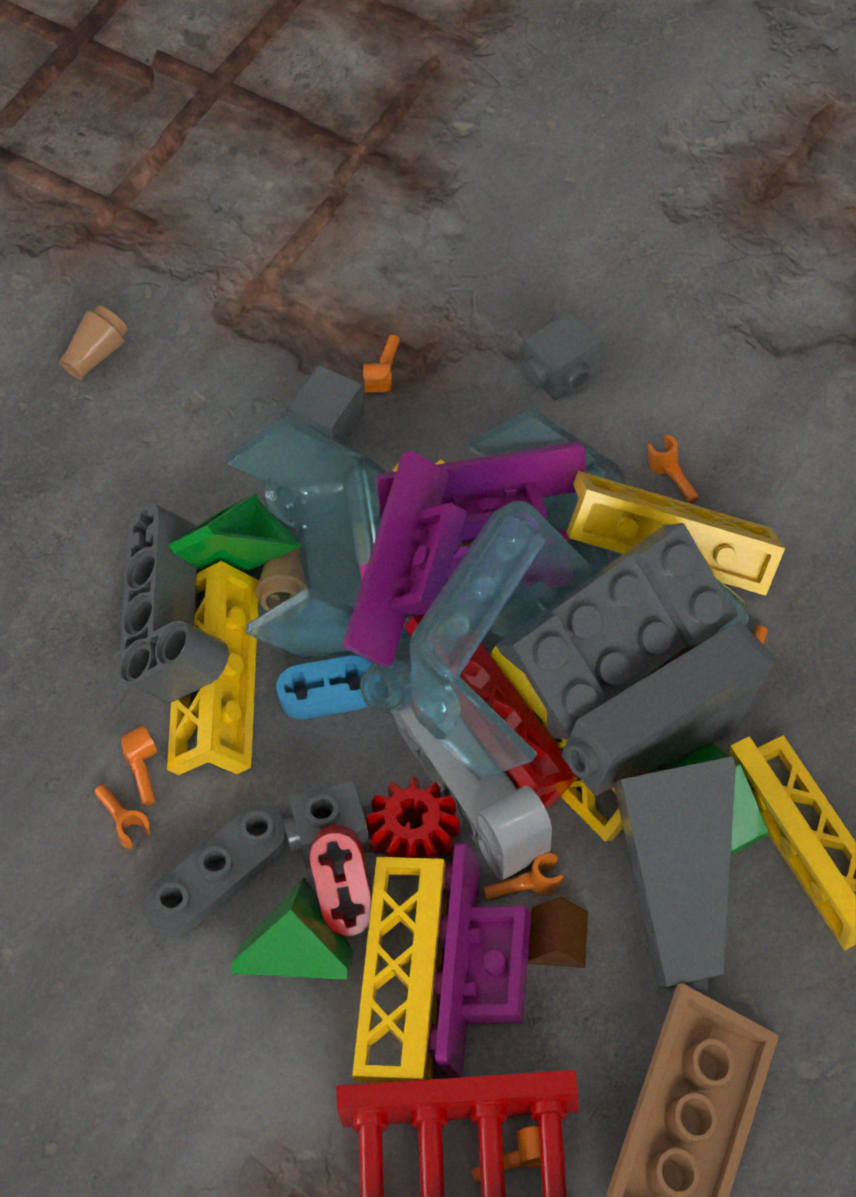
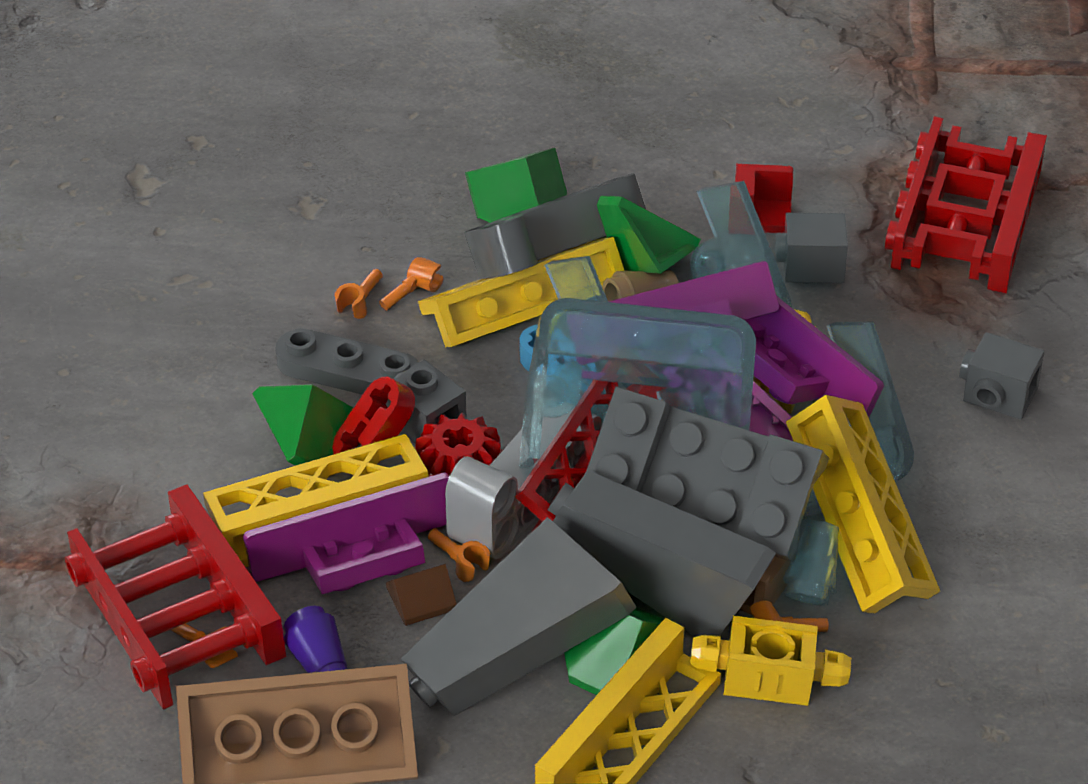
camera: 60 degrees right, 15 degrees down
(77, 613) = (516, 184): none -> green slope
(93, 341) = (778, 98): medium nougat cone -> none
(219, 423) = (770, 192): none -> red panel
(358, 244) = (963, 230): none -> red fence
(379, 375) = (892, 277): orange hand -> none
(592, 1054) = (314, 640): none -> dark purple cone
(668, 464) = (953, 495): orange hand -> none
(815, 663) = (770, 660): none -> yellow piece

